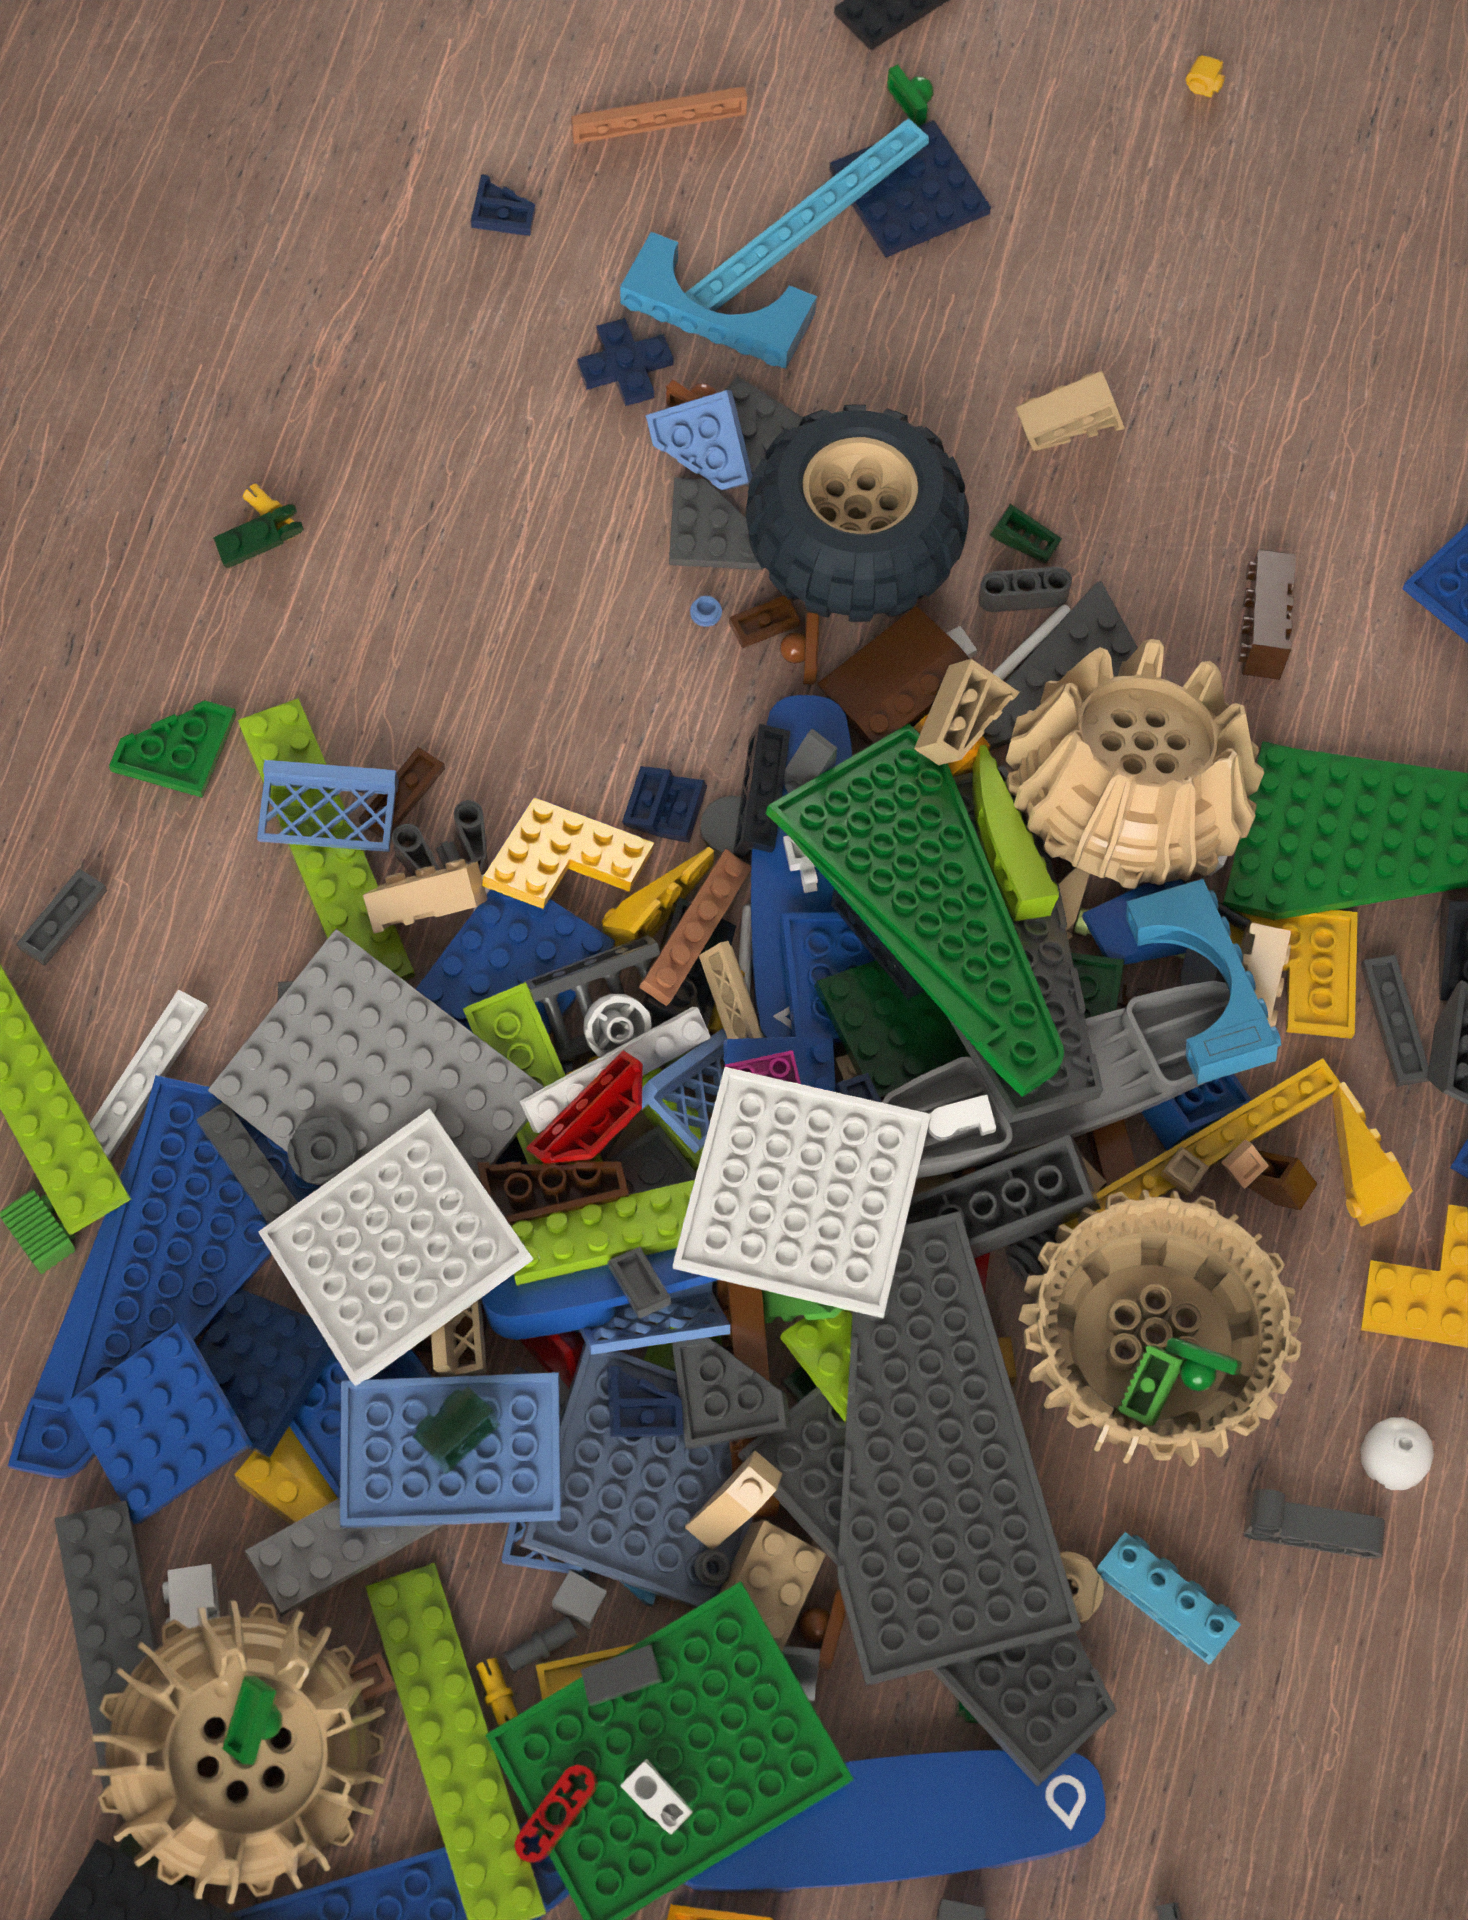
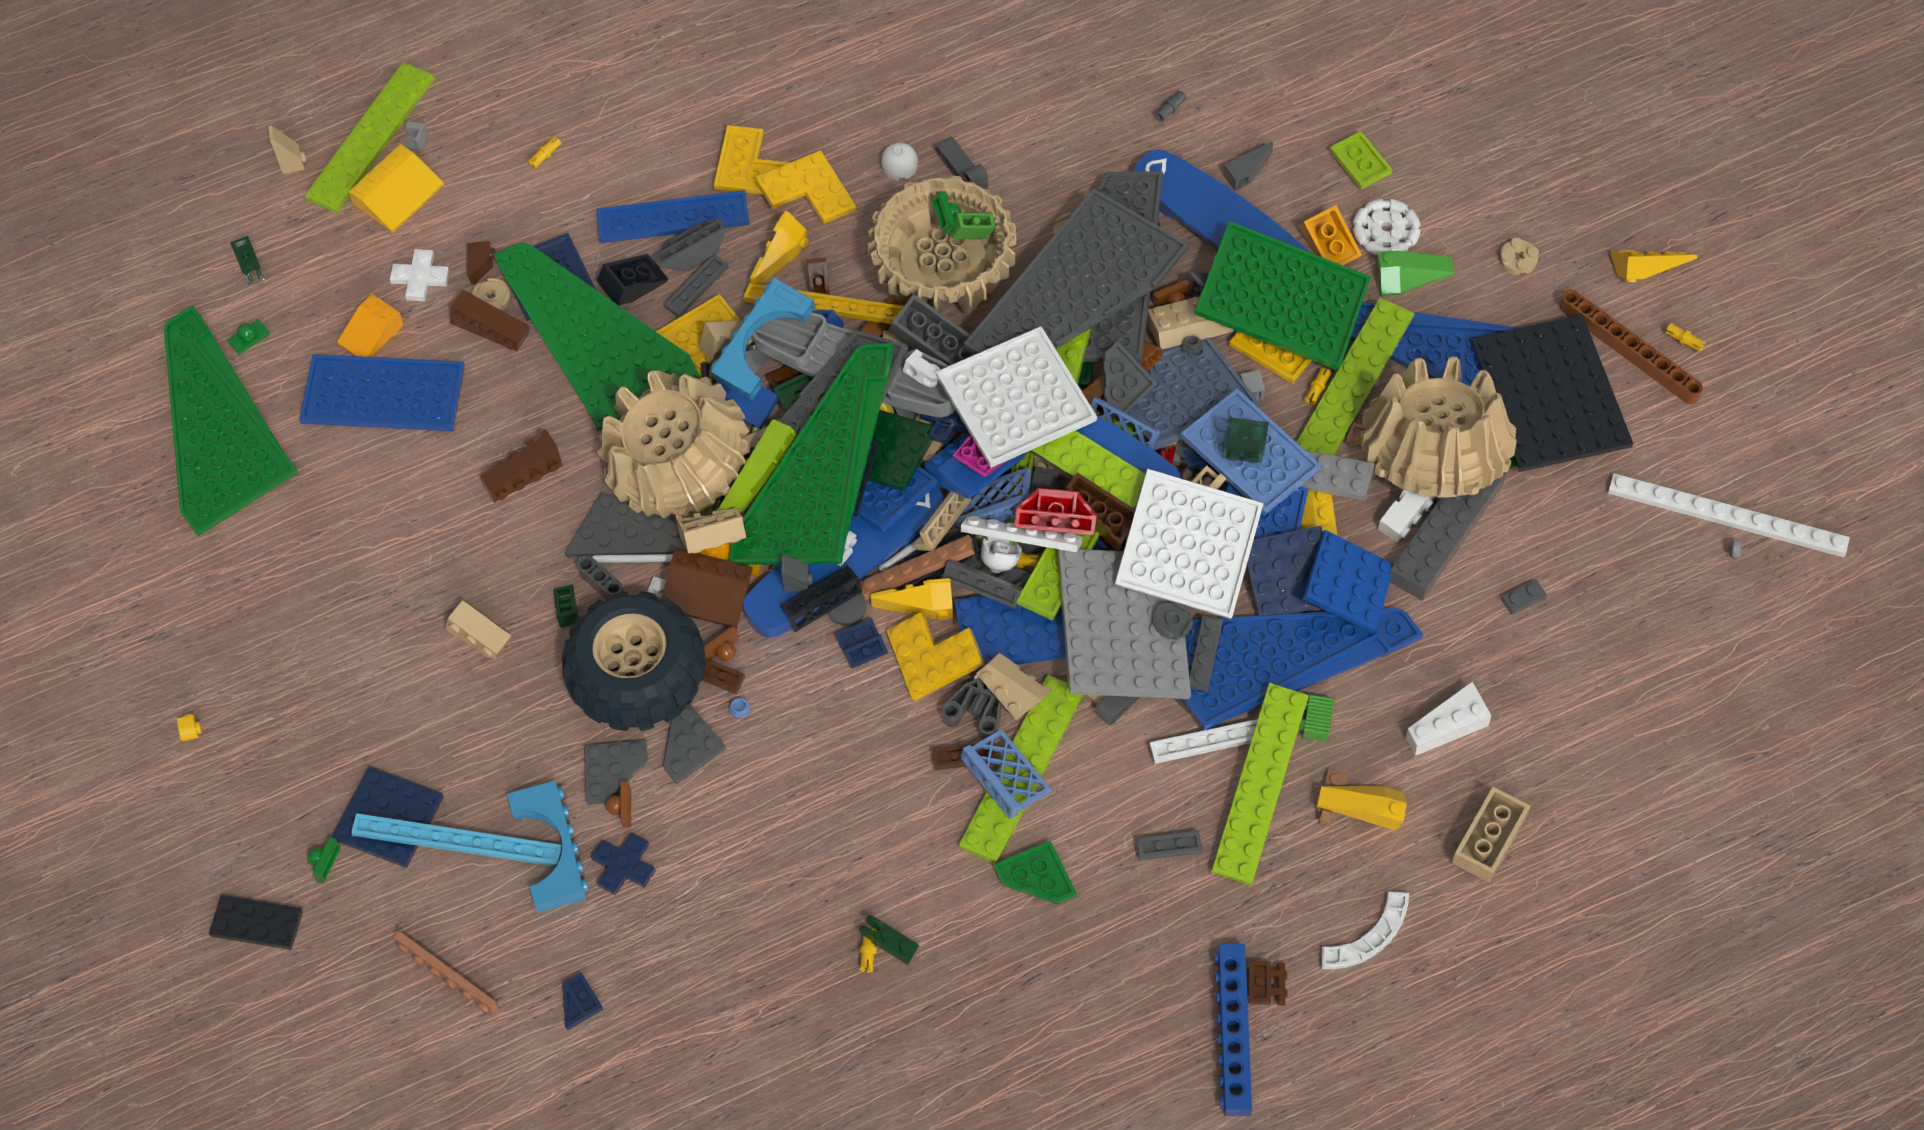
camera: 125 degrees left, 5 degrees down
(252, 1720) = (1431, 407): green tile -> none
(540, 1644) = (1283, 387): dark grey pin -> none
(546, 1842) = (1351, 312): red beam -> none
(621, 1675) = (1273, 326): dark grey slope -> none
(639, 1282) = (1114, 429): dark grey tile -> none
(641, 1408) = (1160, 406): dark blue wing -> none
(657, 1797) = (1303, 283): white leg -> none
(704, 438) = (643, 778): medium blue plate -> none
(735, 1501) = (1159, 340): tan slope -> none
(1167, 1597) = (1041, 194): medium azure brick -> none
(1184, 1171) = (853, 299): tan tile -> none
(1244, 1164) = (825, 286): light nougat plate -> none

